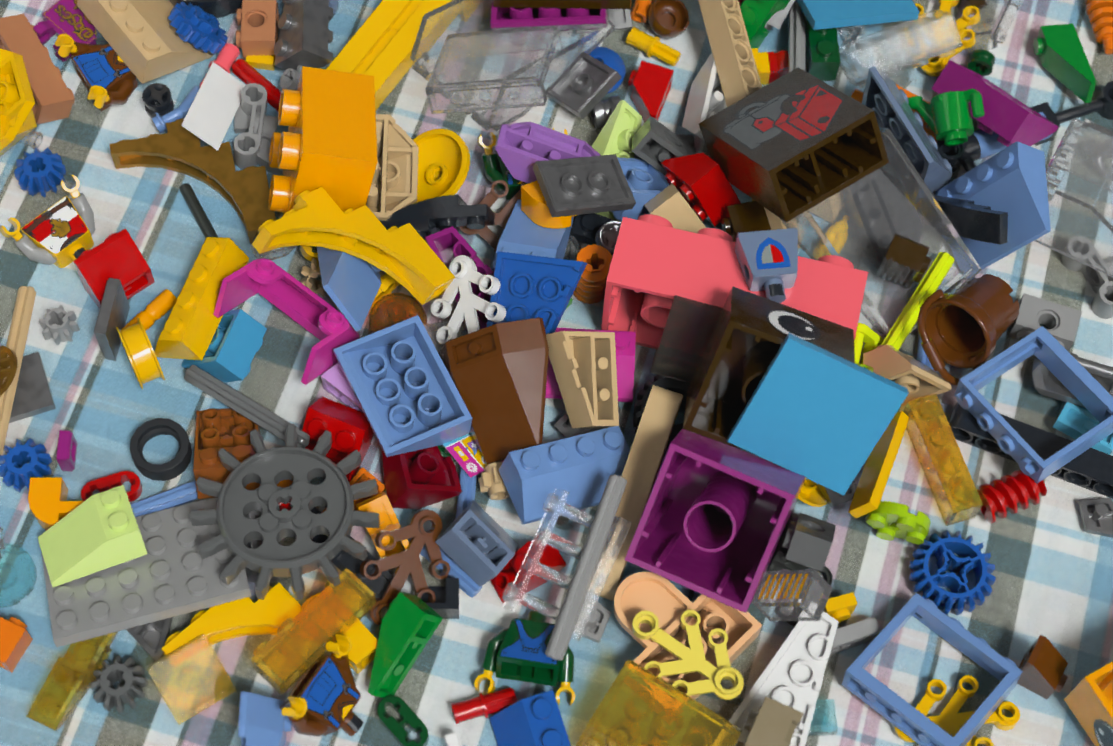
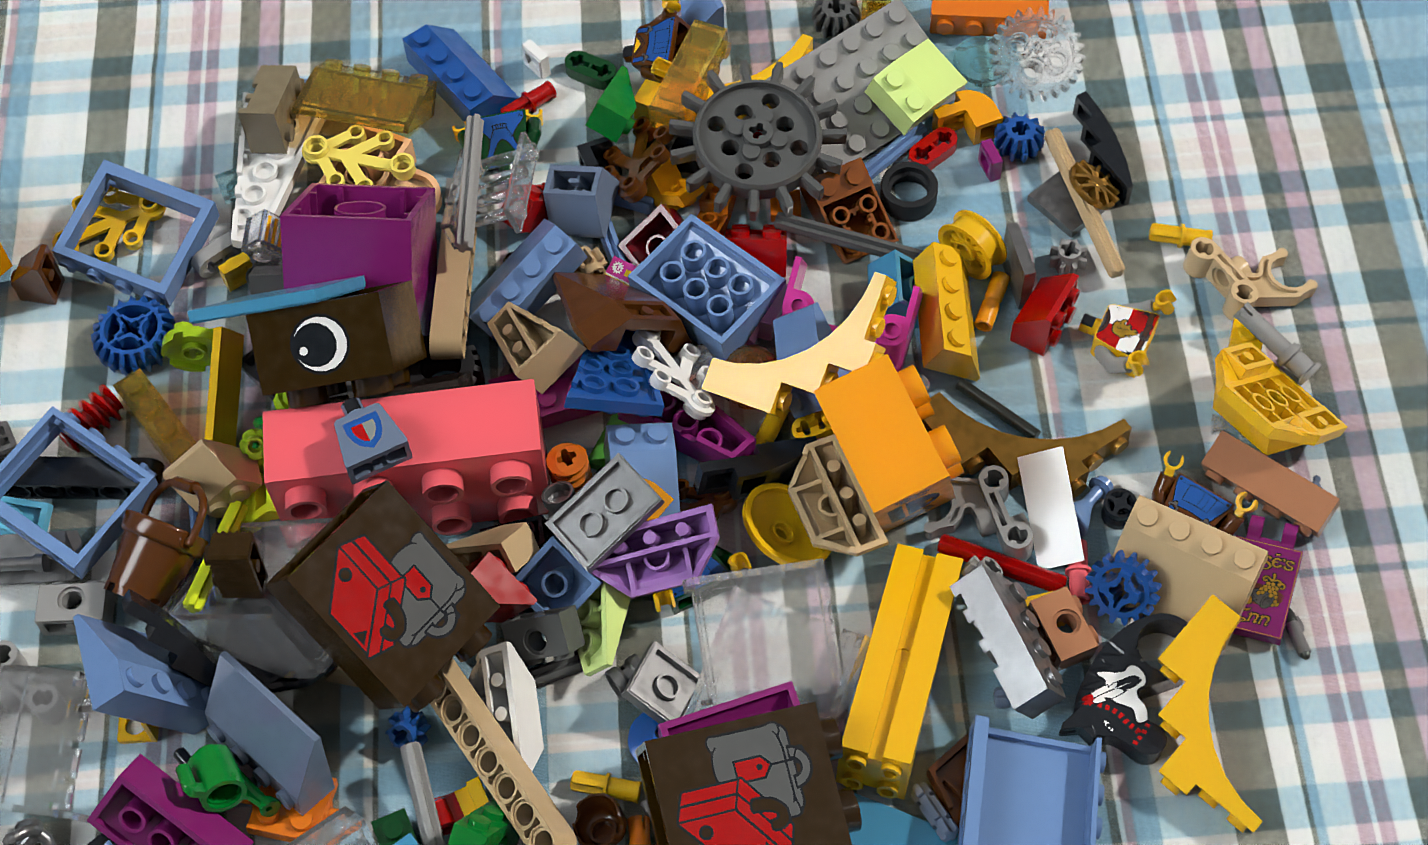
camera: 165 degrees right, 5 degrees down
(40, 172) = (1185, 389): blue gear -> none
(191, 678) = (778, 33): clear yellow tile -> none
(650, 89) = (588, 721): red slope -> none

